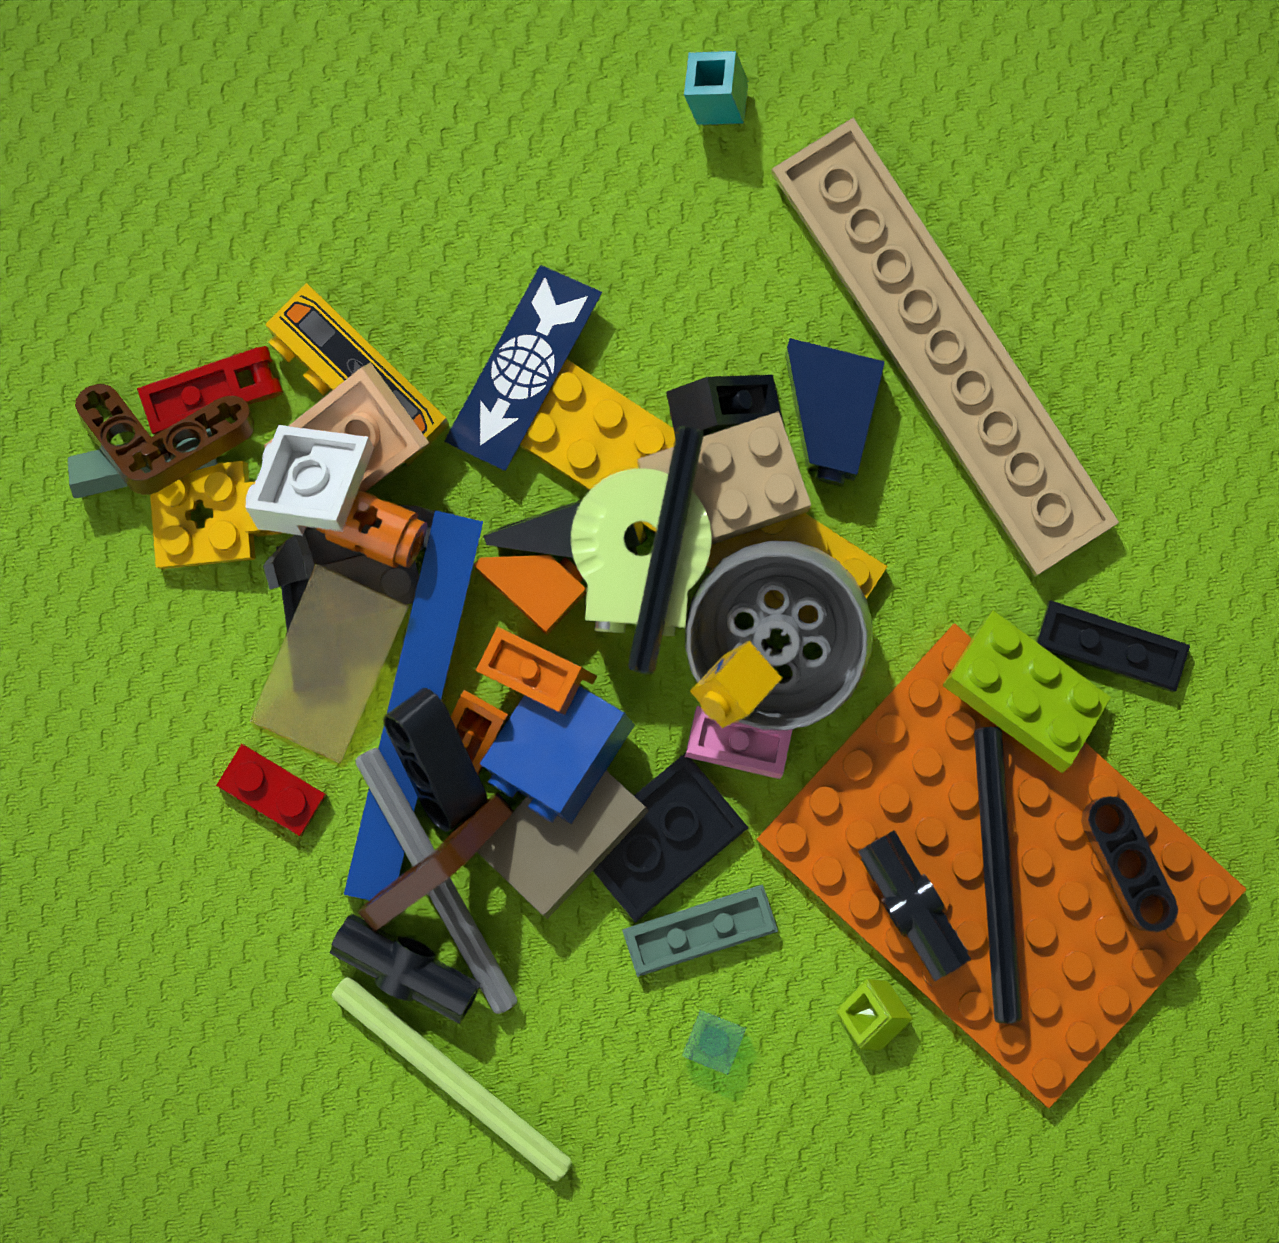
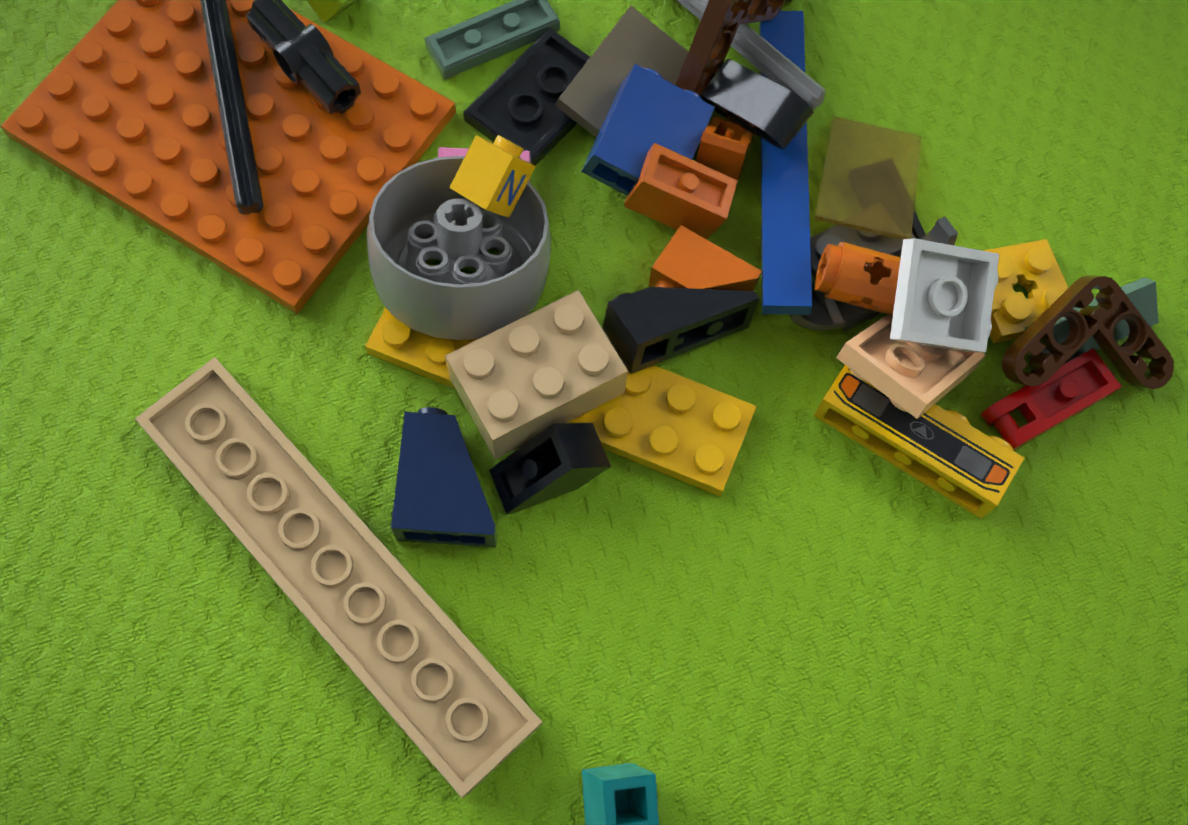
camera: 165 degrees right, 15 degrees down
(271, 790) = (886, 85): red plate -> none
(523, 367) = (756, 477): dark blue sticker -> none
(615, 574) = (601, 249): yellowish green piece -> none
(666, 550) = (582, 281): black axle -> none
(1027, 691) = (215, 248): lime plate -> none
(1112, 646) = (138, 314): black tile -> none
(1150, 877) = (105, 110): black beam -> none

